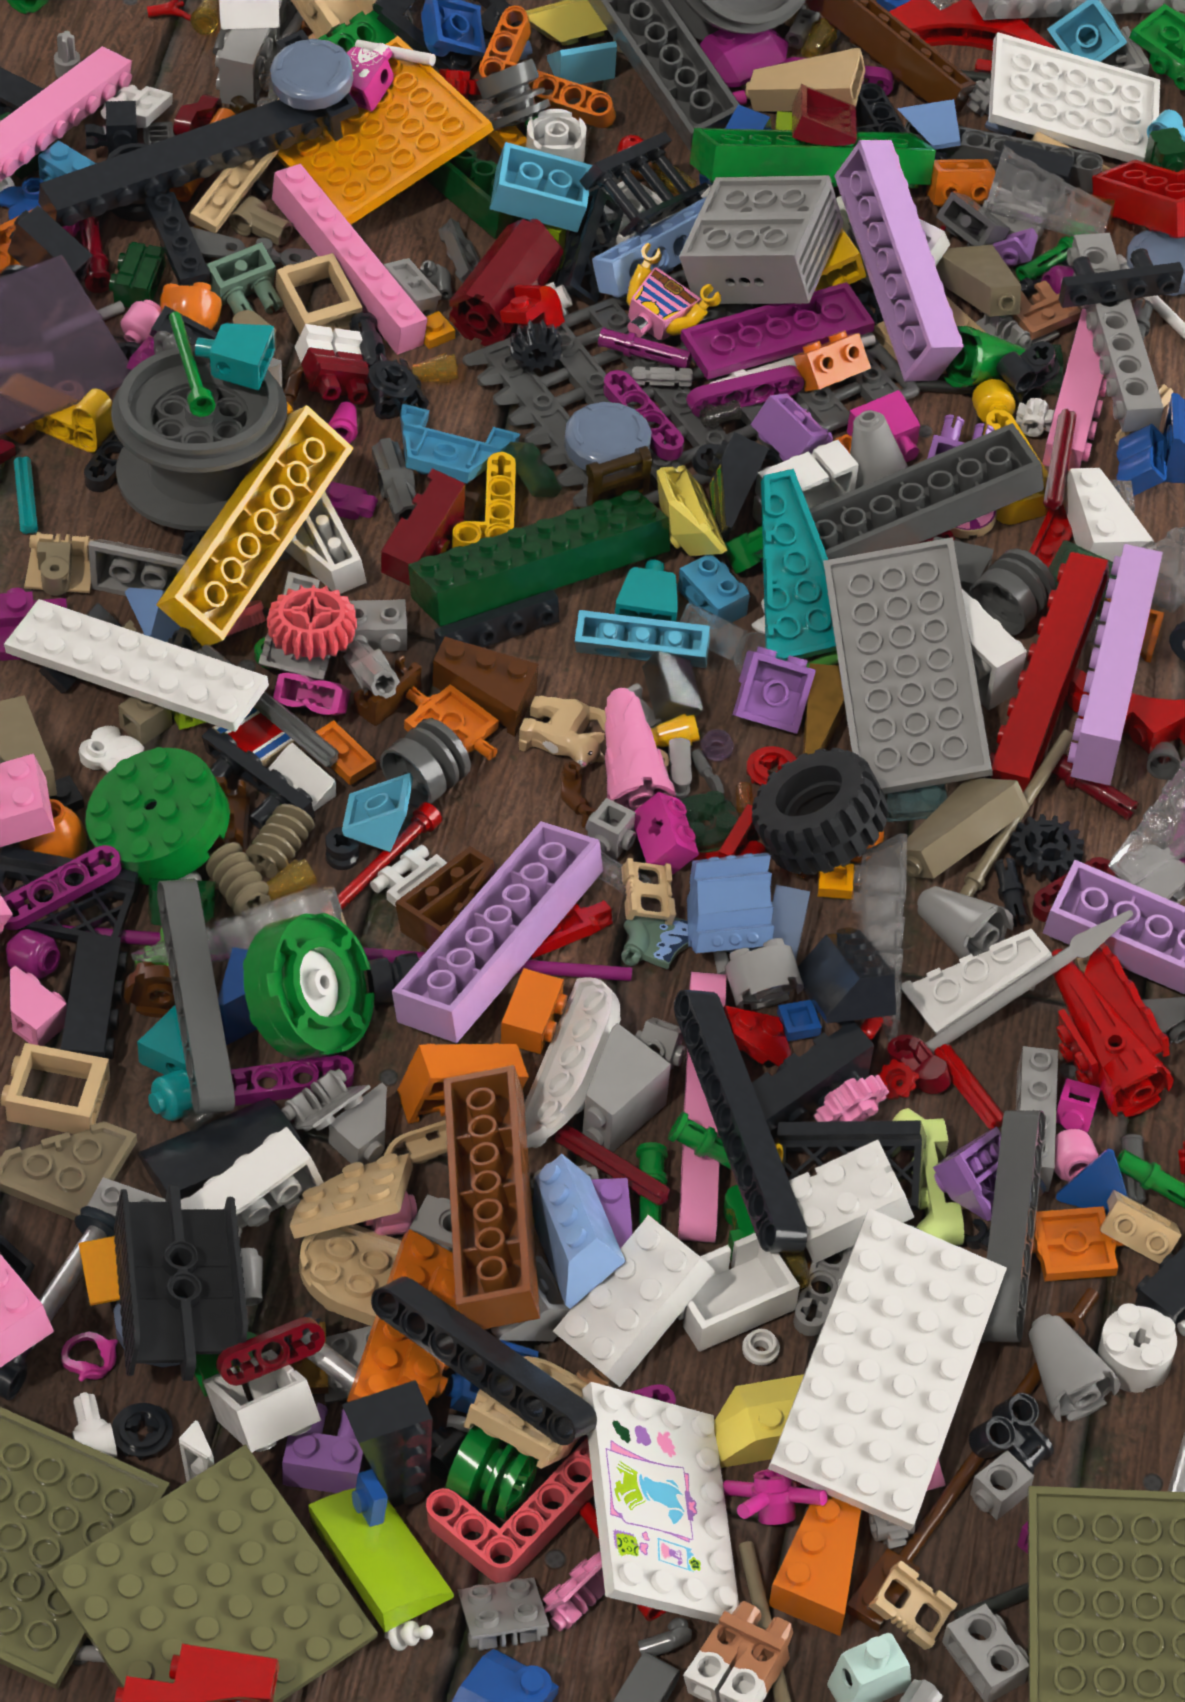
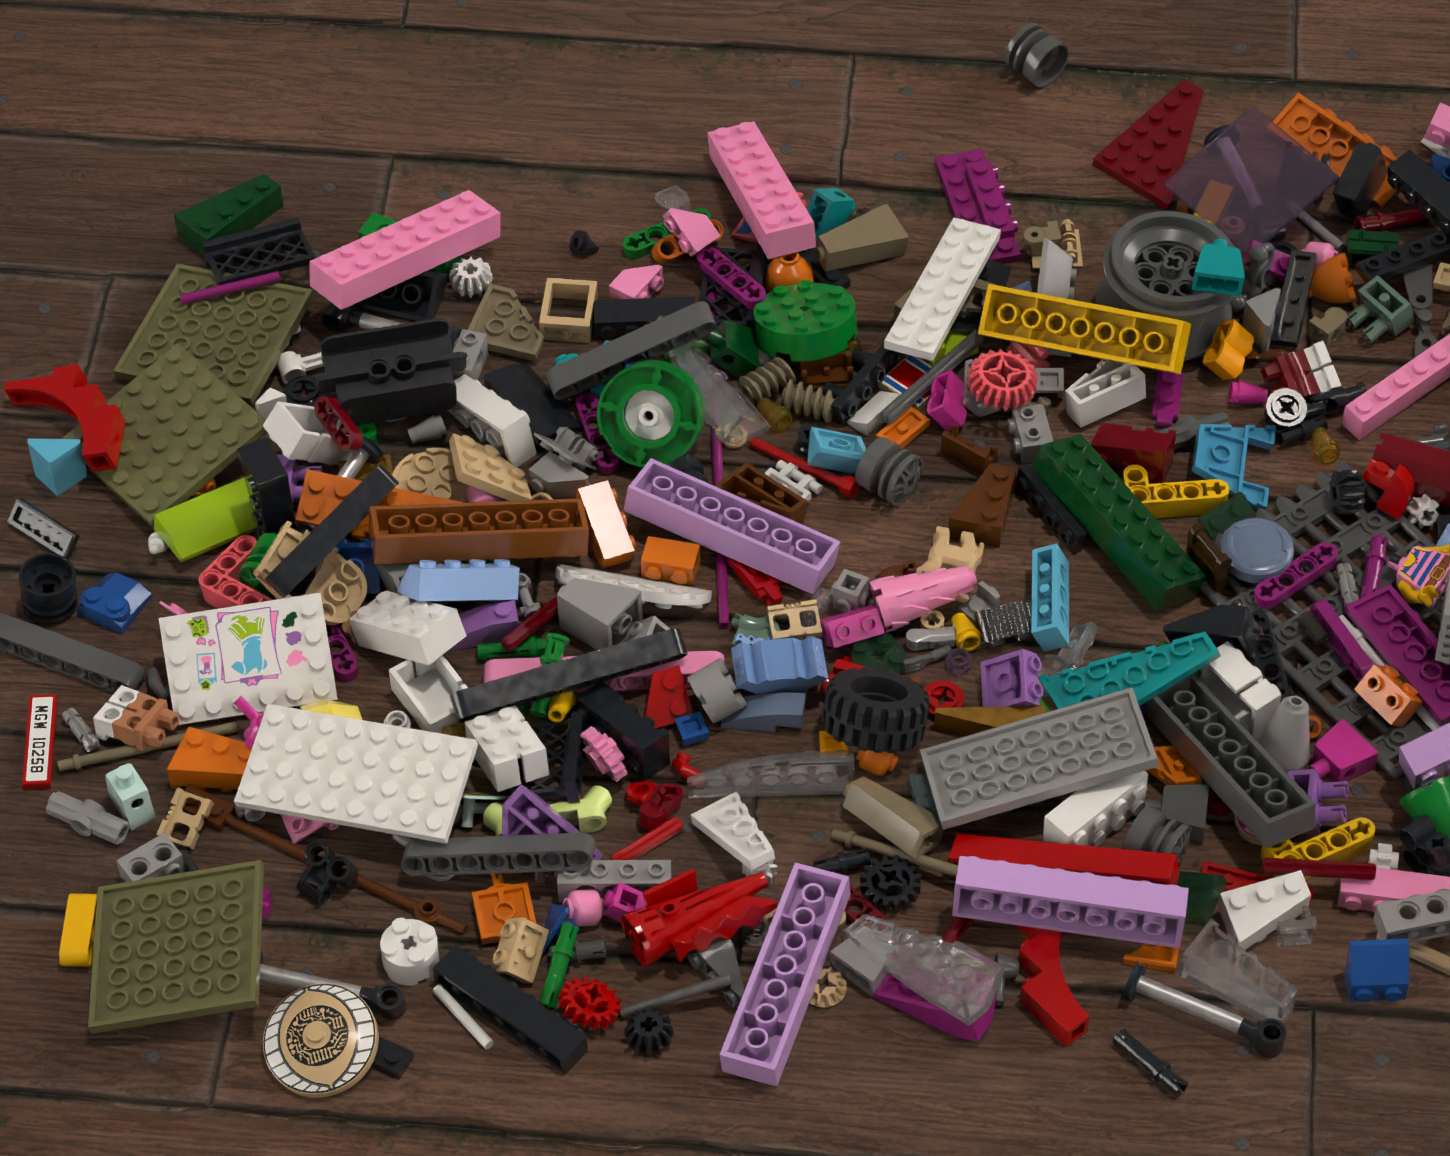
camera: 90 degrees right, 0 degrees up
(25, 495) = (1116, 219): teal axle -> none
(33, 953) = (682, 280): magenta head -> none
(107, 748) = (878, 302): white plate -> none
(200, 399) = (1162, 251): green piece -> none
(310, 271) = (1356, 370): tan window -> none
(370, 1498) = (240, 503): blue plate -> none
(371, 669) = (973, 427): light grey piece -> none
(415, 284) = (1407, 414): light grey hinge -> none
(438, 330) = (1368, 441): light orange plate -> none
(457, 712) = (941, 490): orange plate -> none
(503, 1610) = (175, 587): light grey hinge -> none
(649, 593) = (1103, 601): teal torso -> none
(688, 512) = (1183, 597): light yellow wedge -> none
(713, 588) = (1120, 638): dark azure brick -> none
(789, 427) = (1293, 665): medium lavender brick -> none
(848, 978) = (709, 740): black slope -> none
(964, 921) = (794, 826): light grey cone -> none
(992, 396) = (1388, 828): yellow head -> none
(1005, 1472) = (285, 879): light grey brick -> none
(1069, 1369) = (381, 900): light grey cone -> none
(1080, 947) = (758, 881): light grey piece -> none
(1142, 458) = (1334, 938): blue brick -> none

